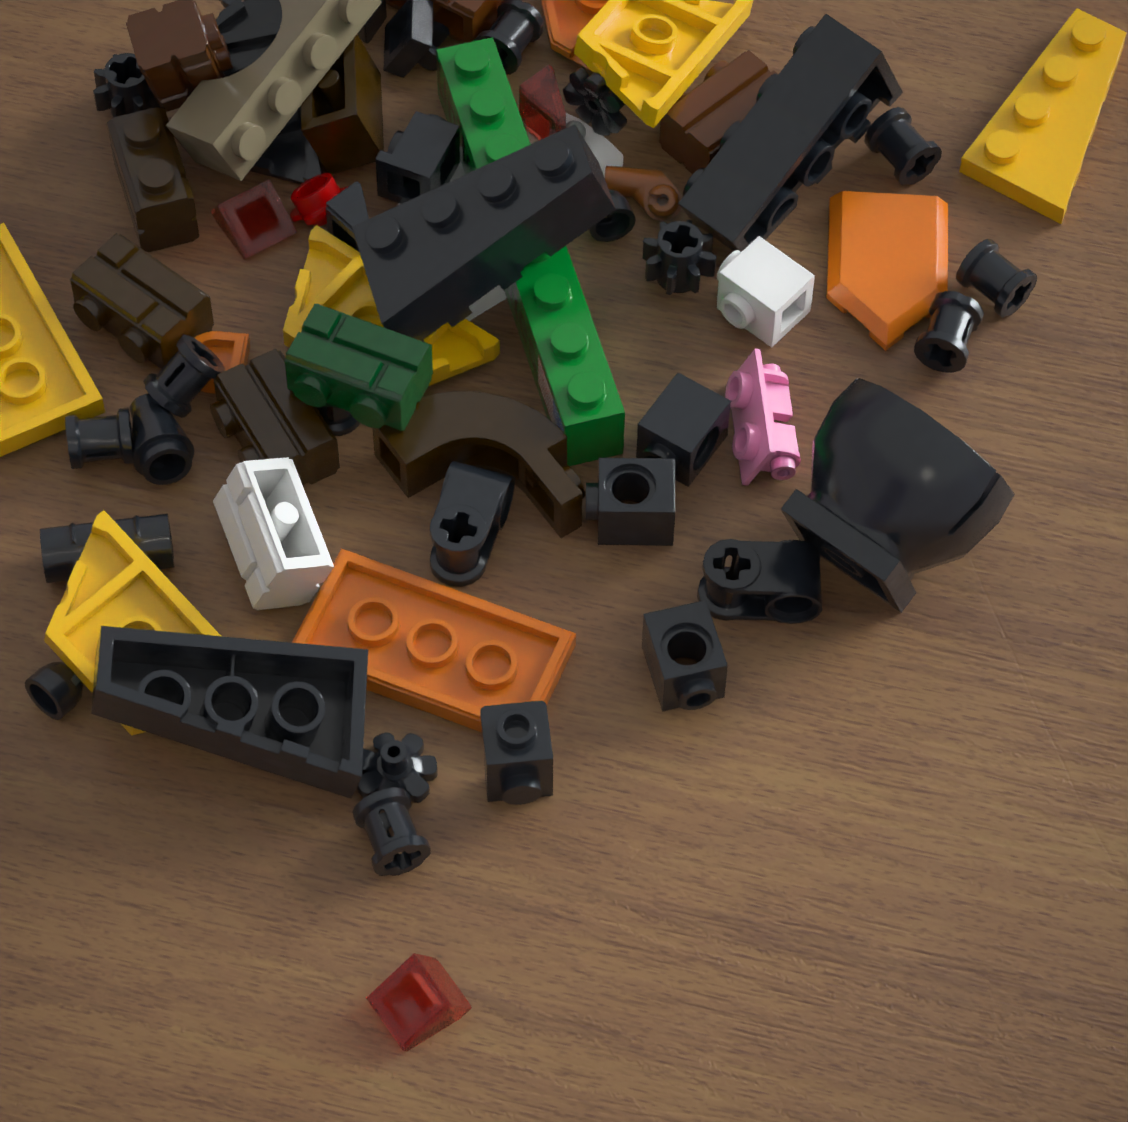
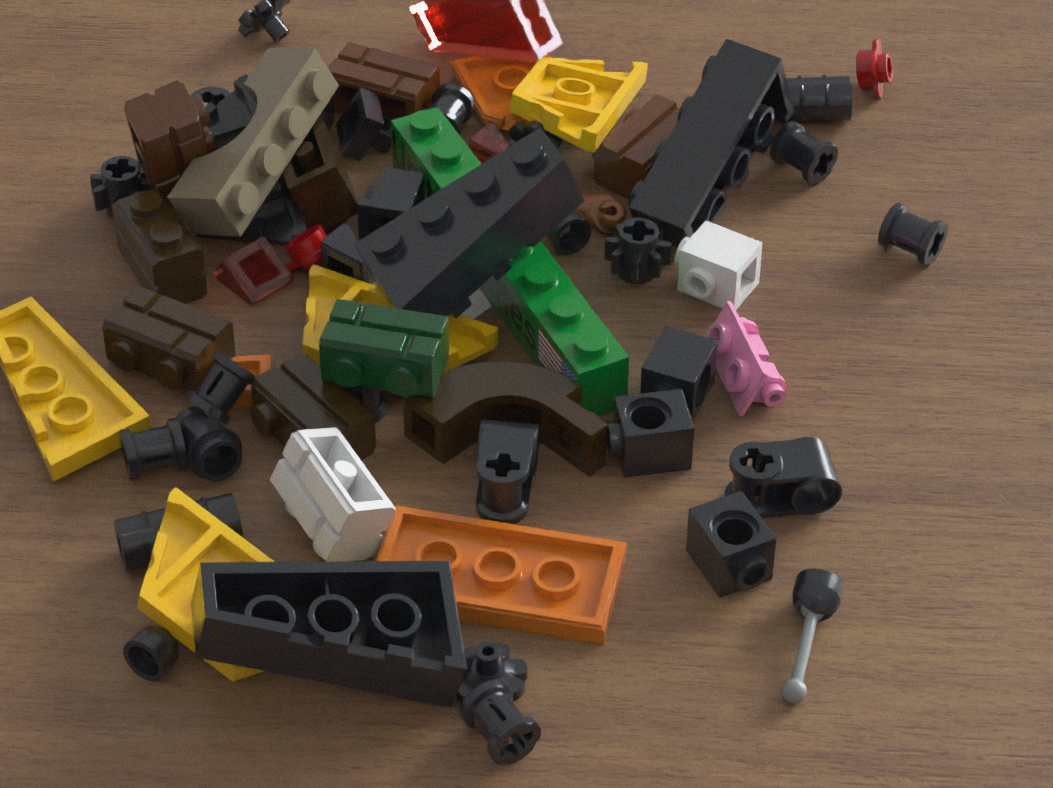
camera: 10 degrees left, 15 degrees down
(517, 752) = (603, 638): black bracket -> none
(758, 735) = (816, 599): none -> hinge
(886, 259) = (813, 236): orange tile -> none
(893, 493) = (888, 379): black plate -> none
(931, 69) = (820, 98): none -> black axle
(948, 332) = (885, 284): black bush -> none
(1016, 37) = (874, 69): none -> red plate
(1046, 123) = (917, 125): yellow wing -> none

